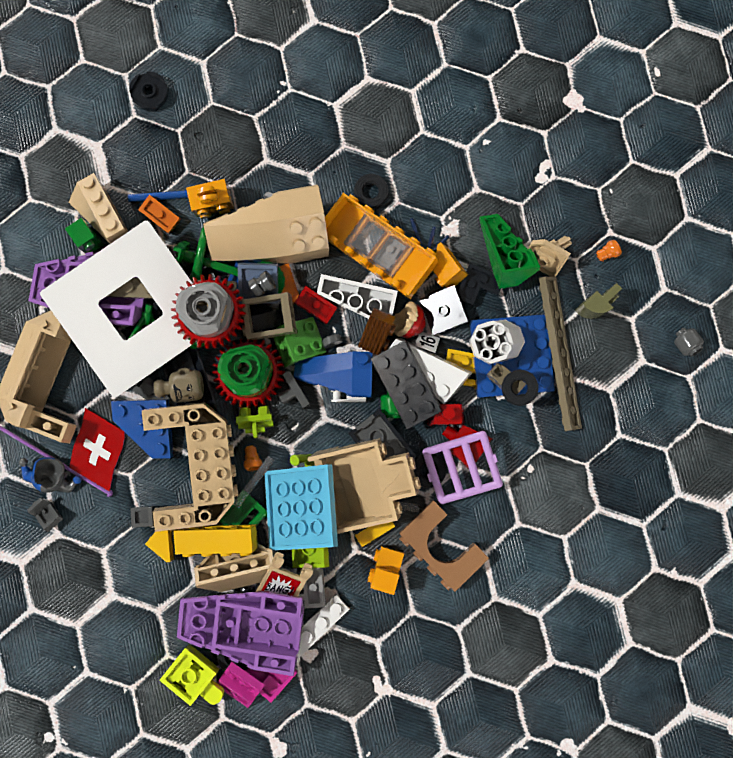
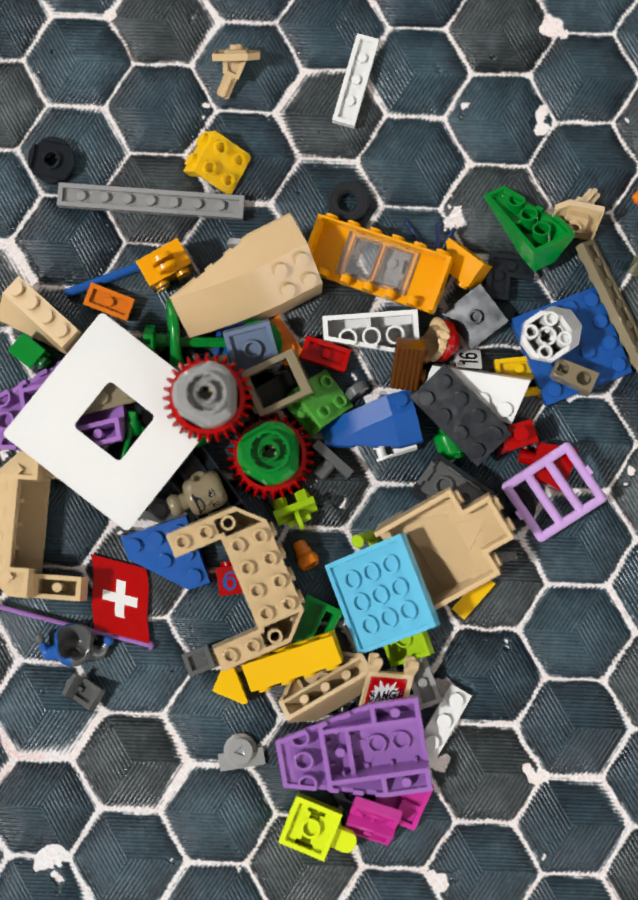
camera: 15 degrees left, 0 degrees up
(154, 599) = (240, 752): none -> light grey piece
(182, 460) = (227, 580): none -> red brick
(216, 145) = (151, 201): none -> light grey plate
(253, 481) = (316, 580): clear bar -> none
(262, 284) = (258, 347): dark grey wheel -> none
(278, 129) = (217, 161): none -> yellow bracket
(312, 57) = (233, 64): none -> tan piece
(386, 571) = (501, 636): light orange brick -> none
(405, 97) = (355, 80): none -> white plate
(452, 572) = (524, 587): medium nougat arch -> none
(528, 378) = (604, 369): black tyre -> none

